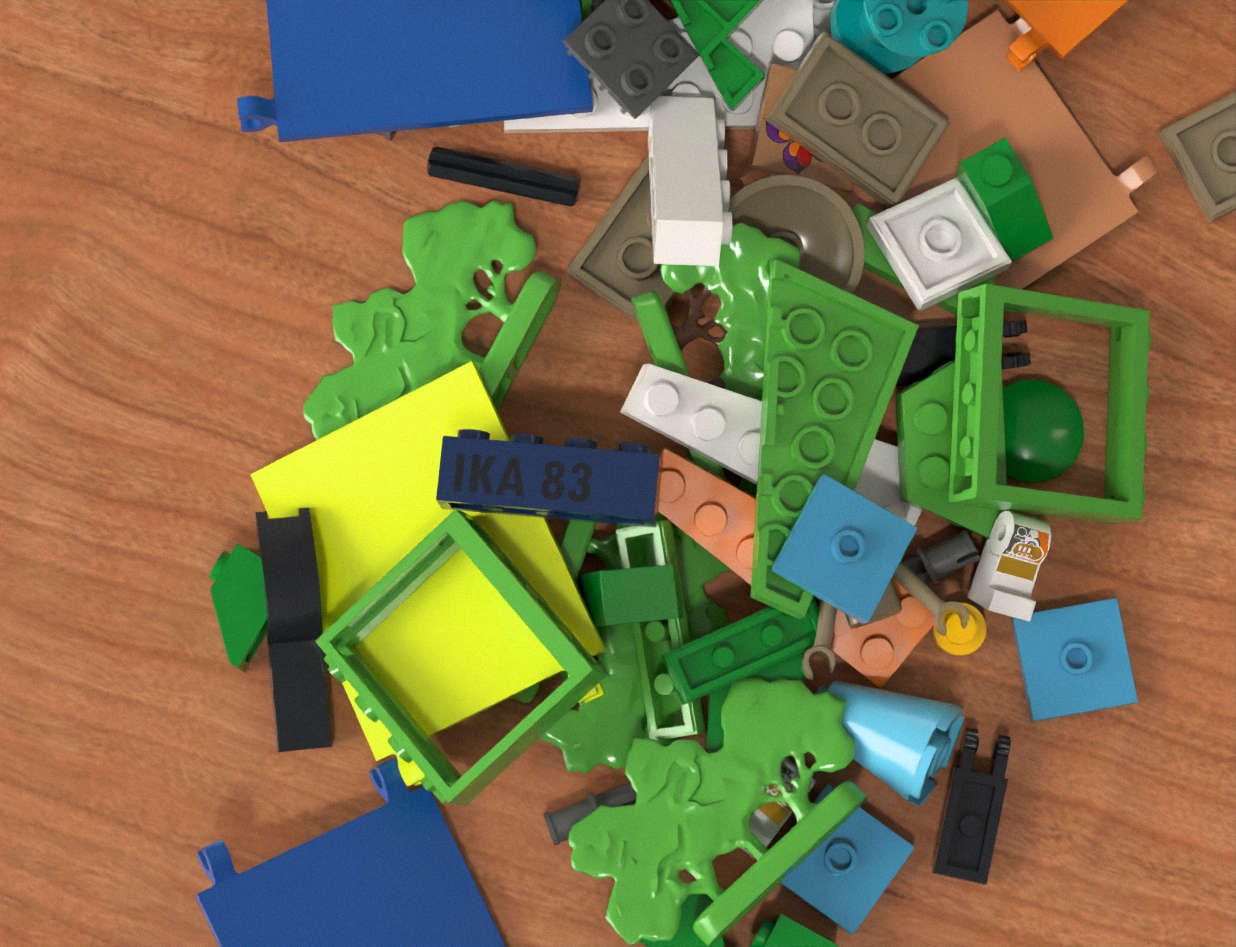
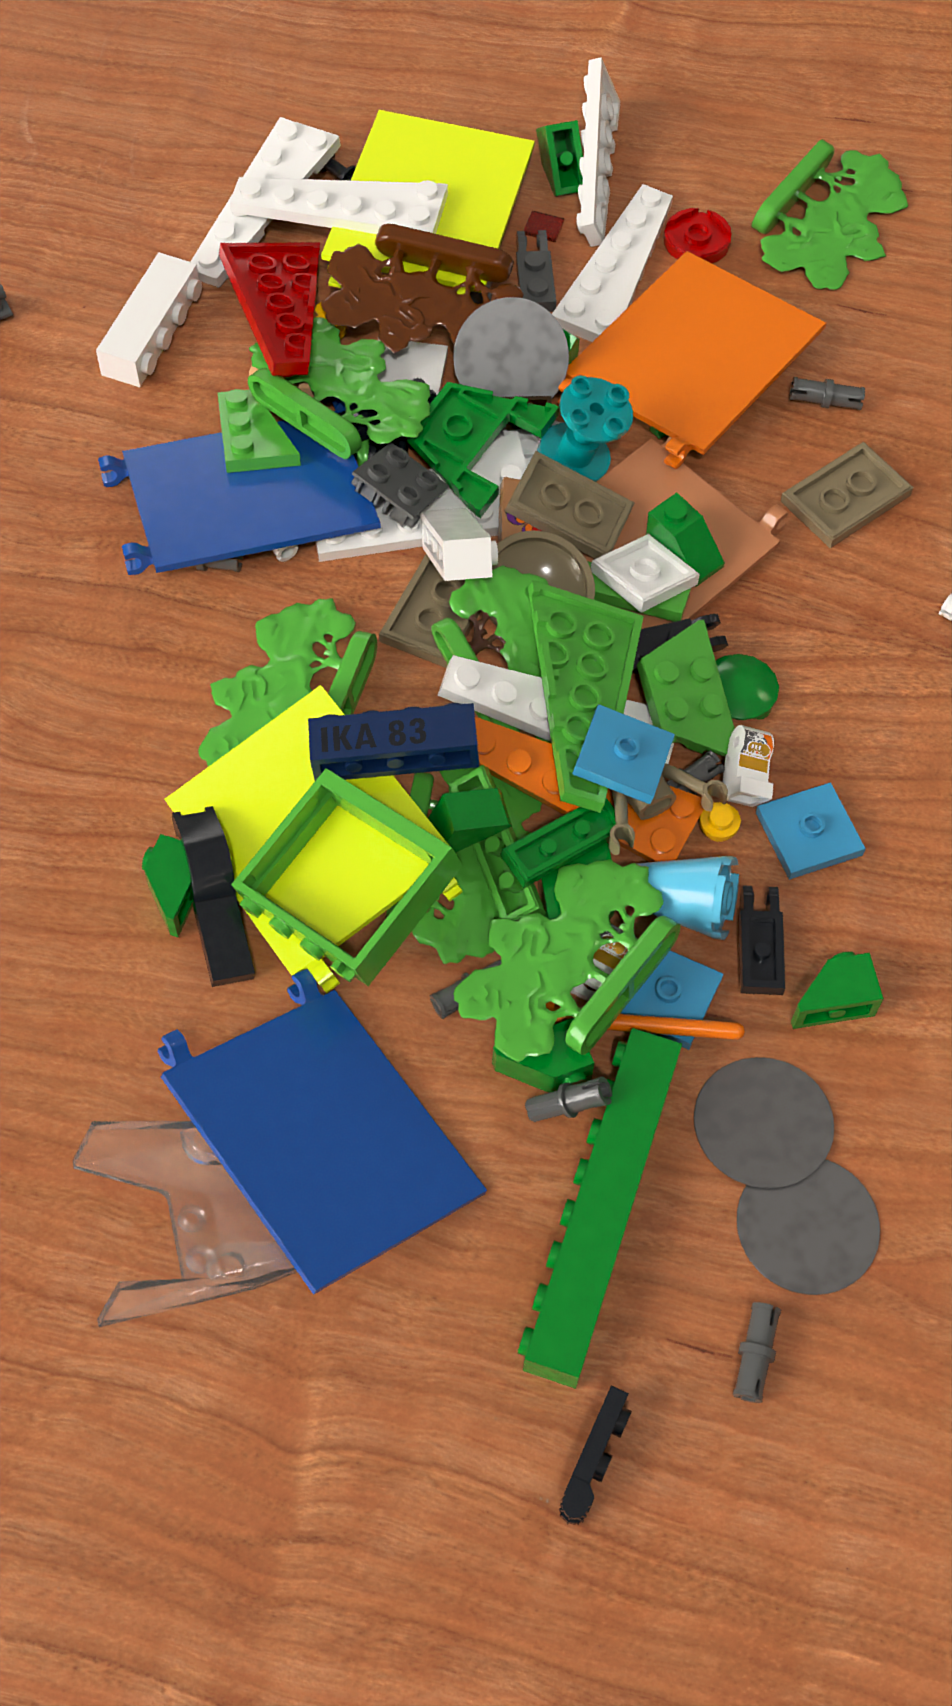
camera: 10 degrees left, 20 degrees down
(503, 176) = (323, 583): black axle -> none
(826, 910) = (670, 1025): none -> orange piece
(978, 402) = (702, 668): bright green window -> none
(1054, 897) = (841, 992): none -> green slope

